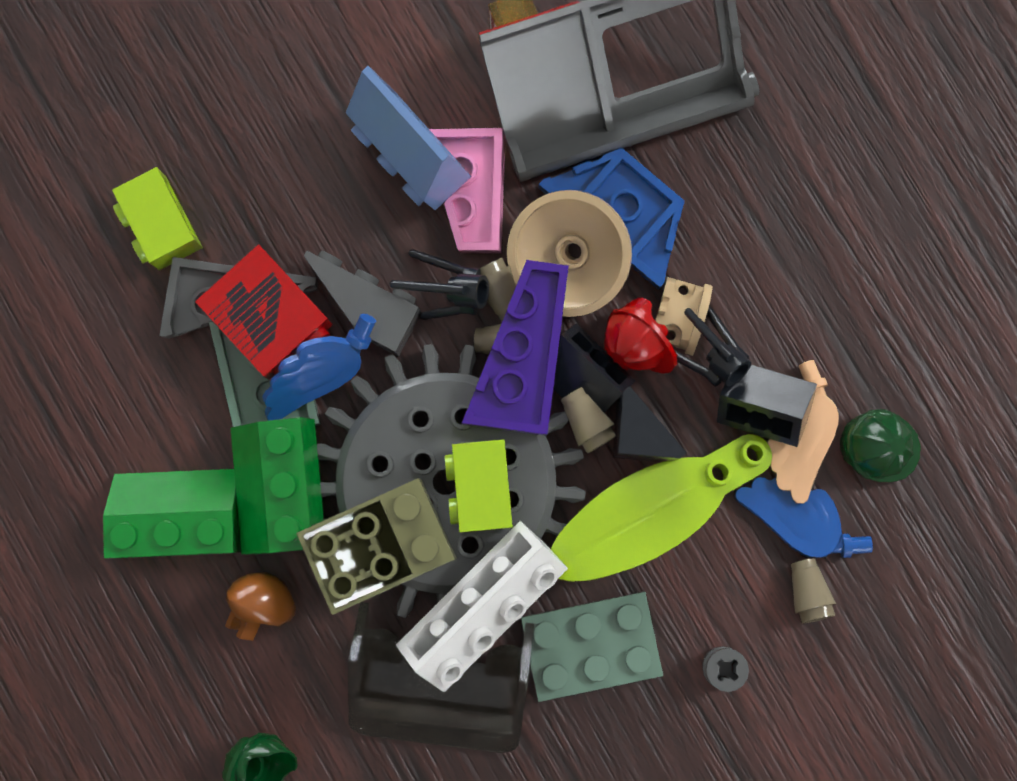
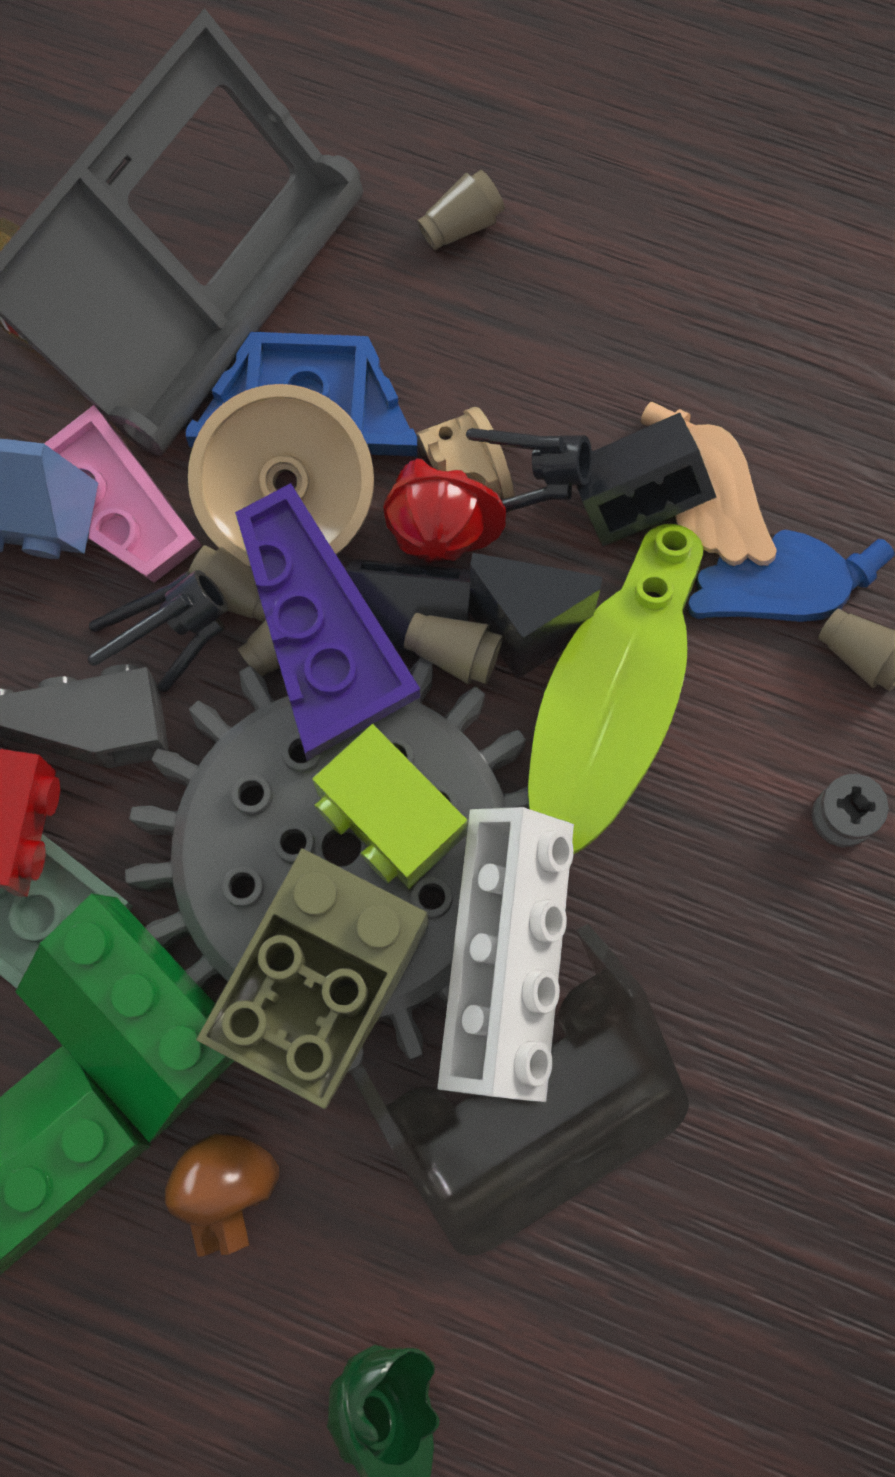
camera: 40 degrees left, 10 degrees down
(316, 369) = (73, 829): blue animal -> none
(593, 646) = (679, 907): sand green plate -> none
(800, 160) = (462, 210): none -> dark tan cone
(880, 446) = (801, 436): dark green piece -> none

